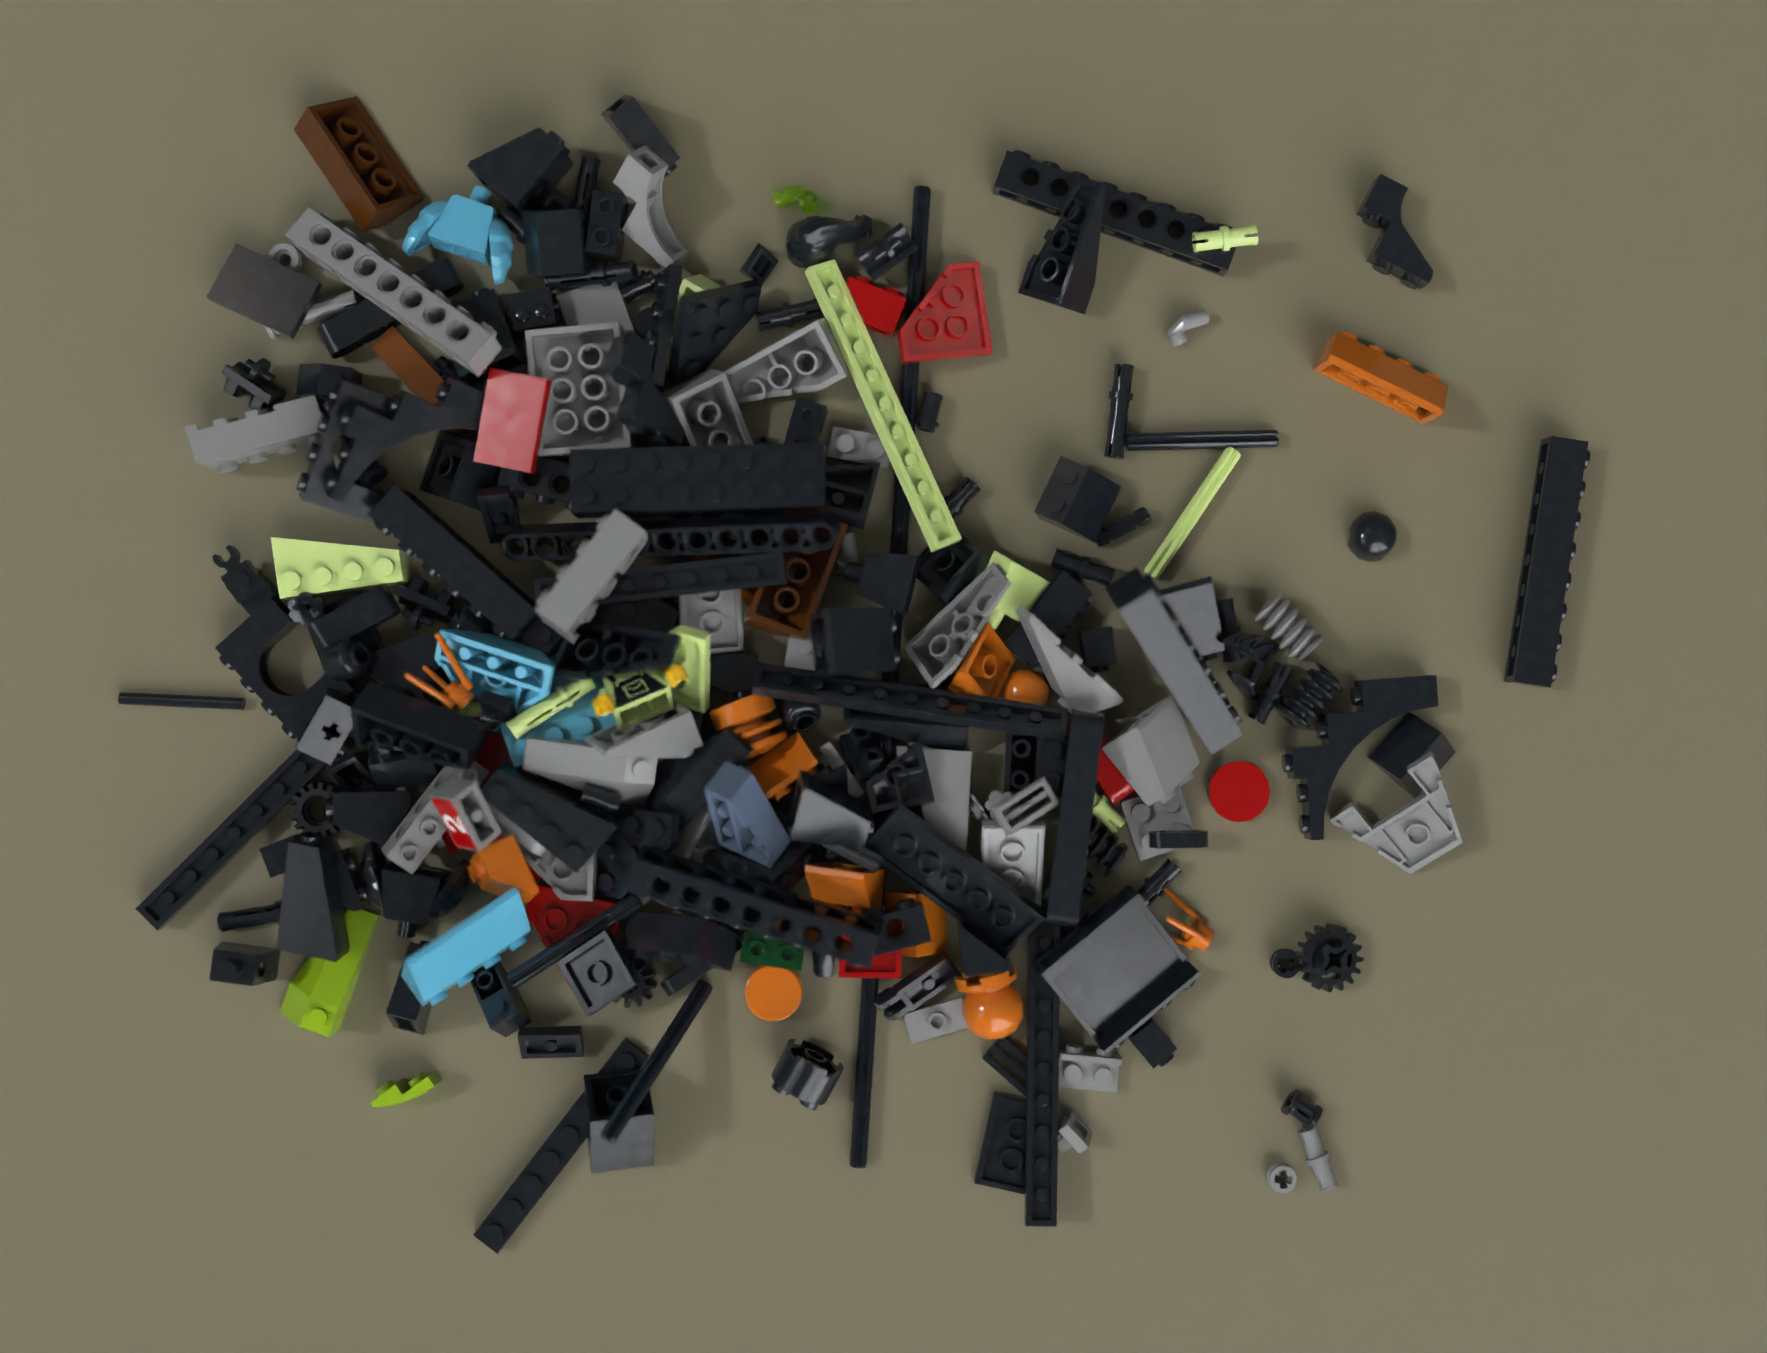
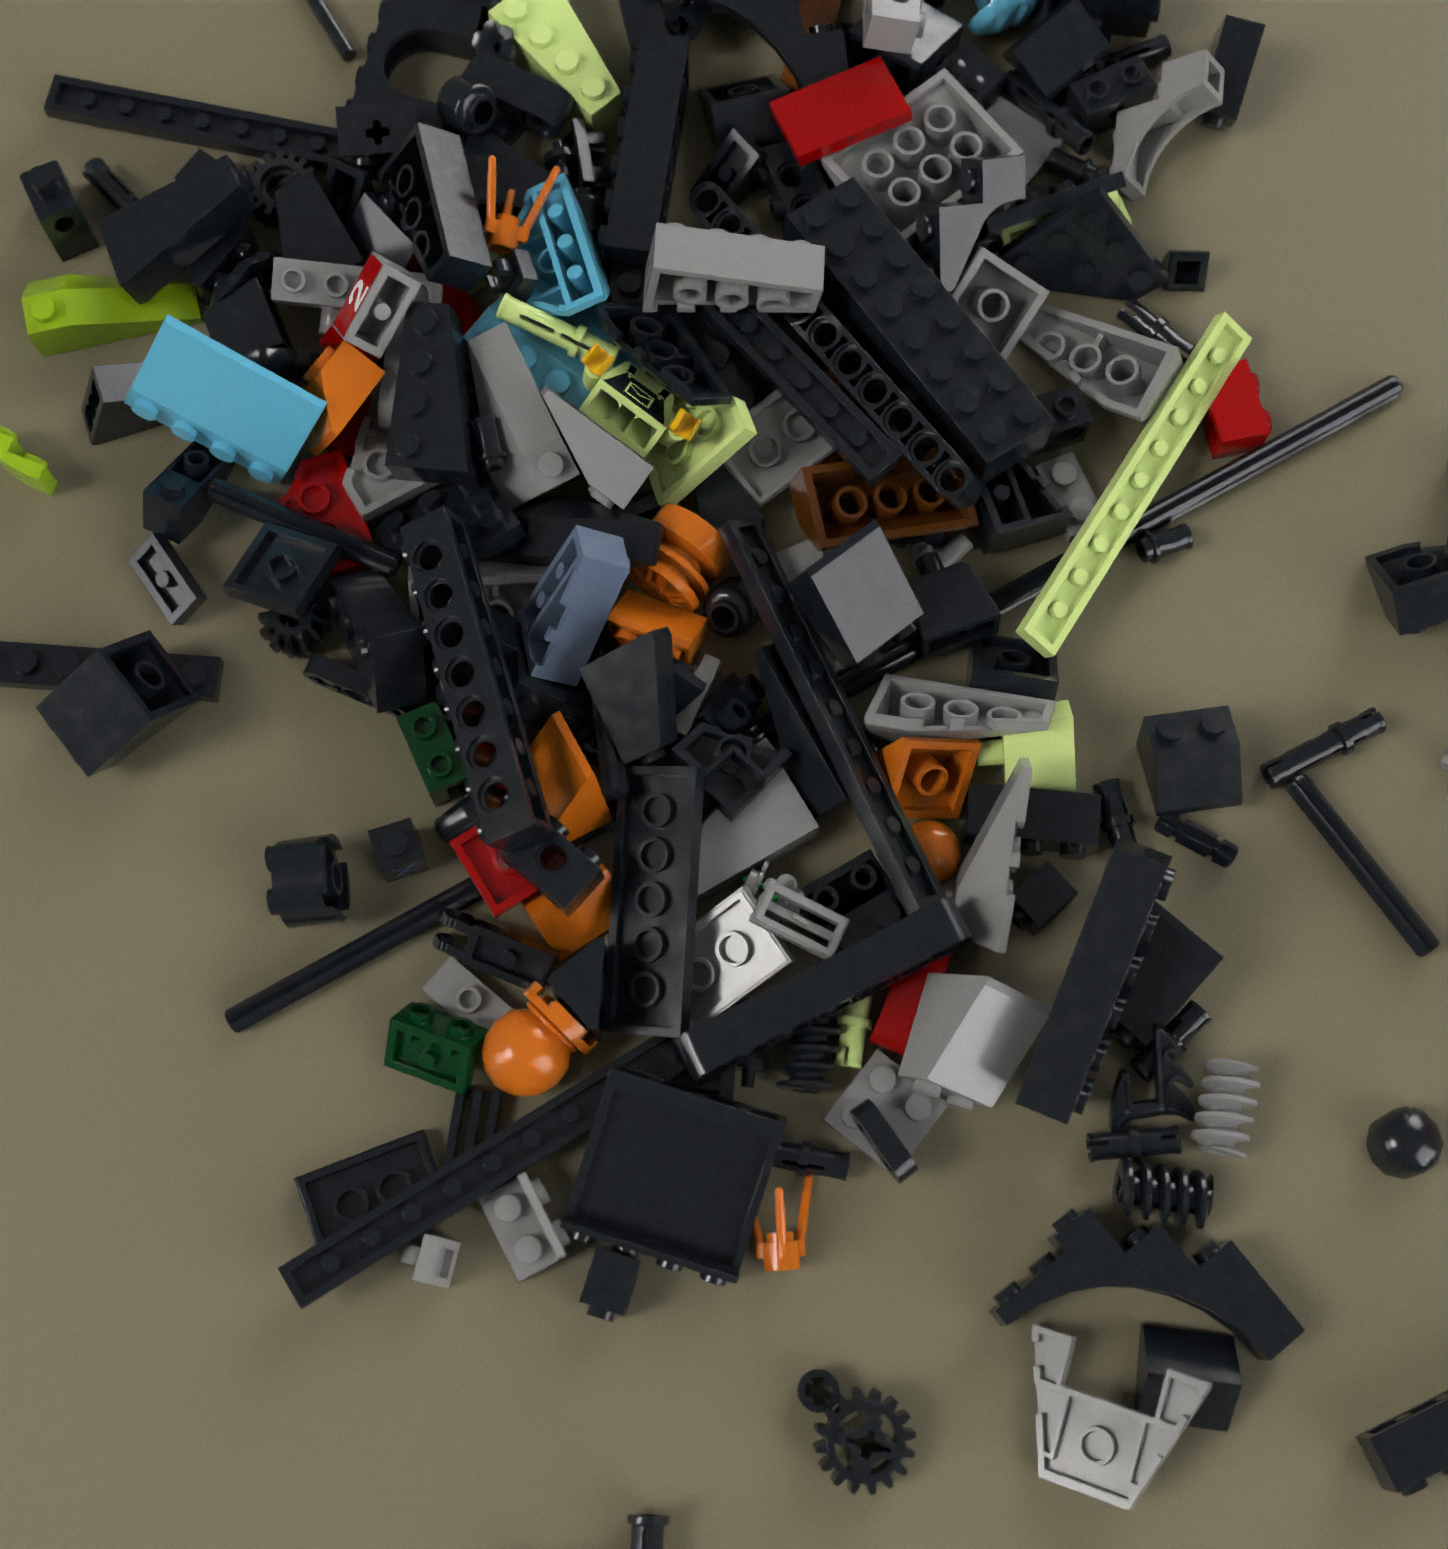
camera: 55 degrees right, 15 degrees down
(656, 1062) = (214, 692): black axle -> none
(773, 992) = (383, 786): orange head -> none
(797, 195) = (1285, 263): clear neon green arm -> none
(816, 237) = (1265, 302): black piece -> none
(820, 1007) = (398, 850): none -> black brick
(886, 252) = (1301, 385): black hips -> none
(948, 319) = (1280, 495): red plate -> none
(951, 1057) = (433, 1046): none -> dark green bracket
(961, 496) = (1095, 636): black pin -> none
(1192, 512) = (1274, 908): yellowish green axle -> none
(1238, 791) = (989, 1186): red tile -> none

